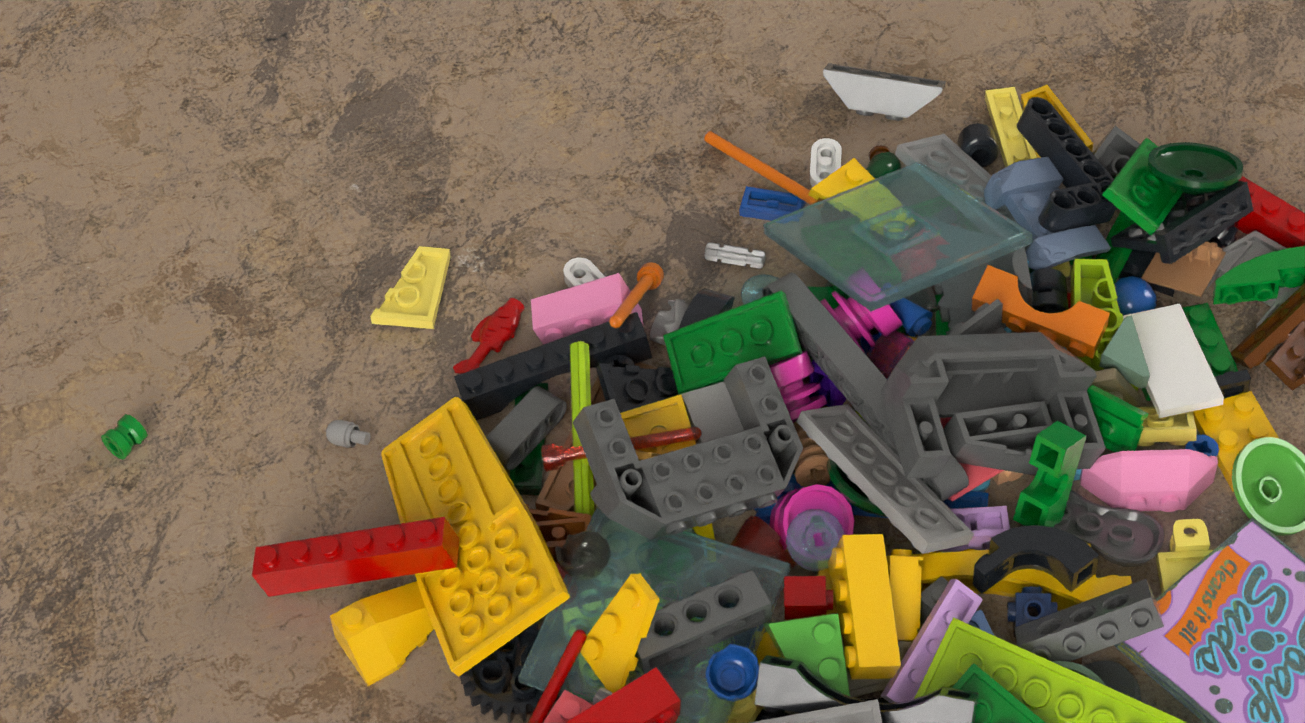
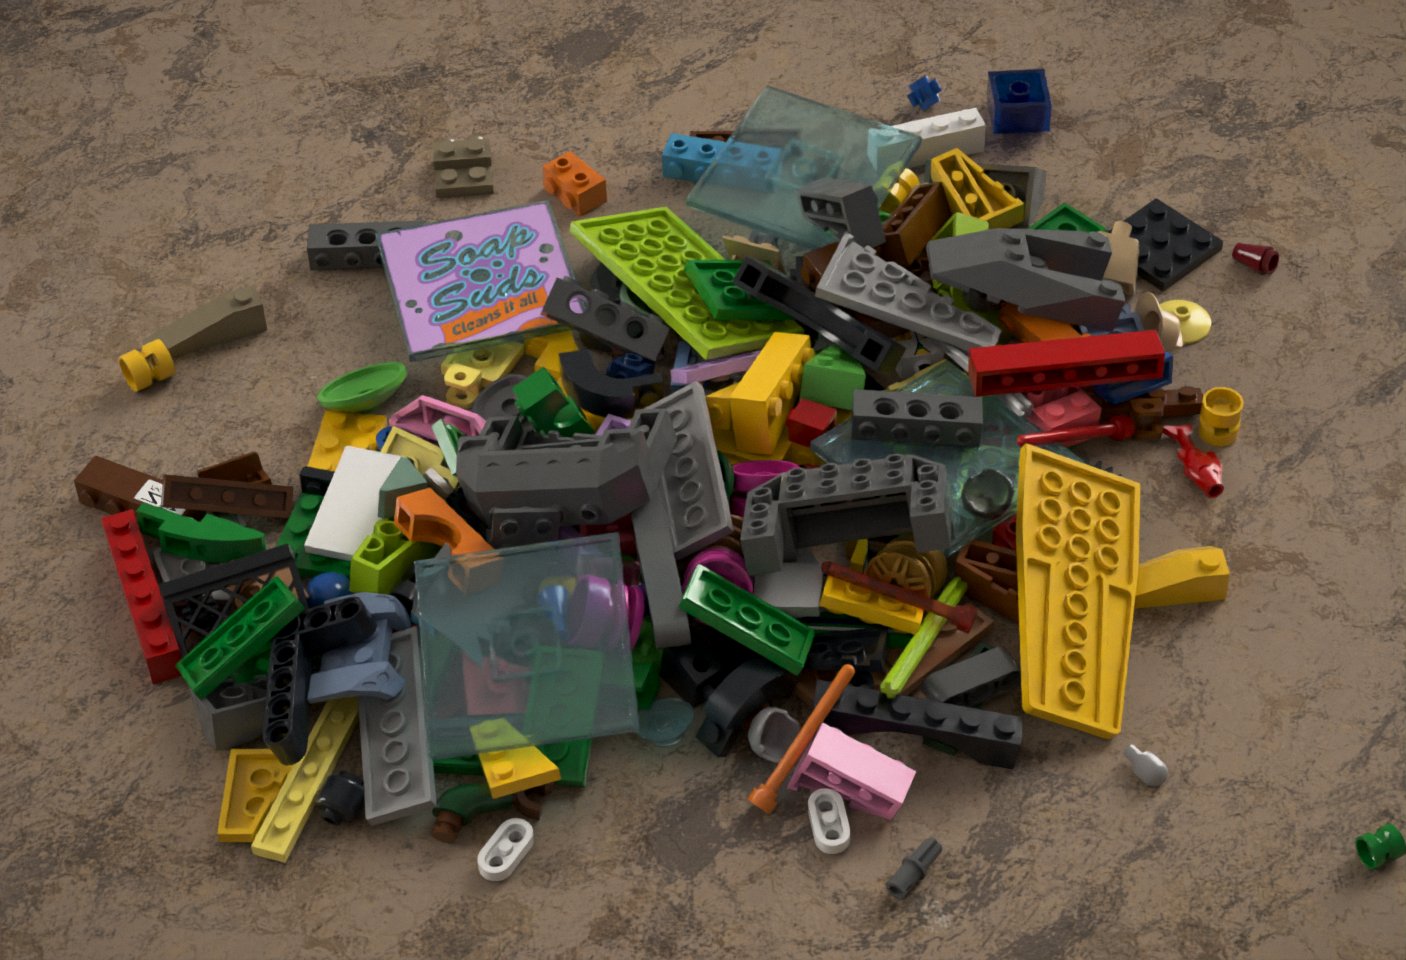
camera: 155 degrees left, 5 degrees down
(356, 556) = (1189, 606): red brick -> none
(418, 291) = (1011, 887): light yellow wing -> none
(492, 334) = (950, 811): red animal -> none
(501, 276) = (913, 868): none -> dark grey axle
(617, 633) = (991, 413): yellow wing -> none
(732, 673) = (909, 375): blue hair -> none
(735, 255) = (662, 794): light grey axle -> none
(760, 167) = (574, 871): orange piece -> none
(771, 209) = (584, 840): blue tile -> none
(801, 540) = (773, 457): clear light blue piece -> none
(881, 91) = (380, 898): wedge -> none
(1195, 167) = (174, 613): dark green dish -> none

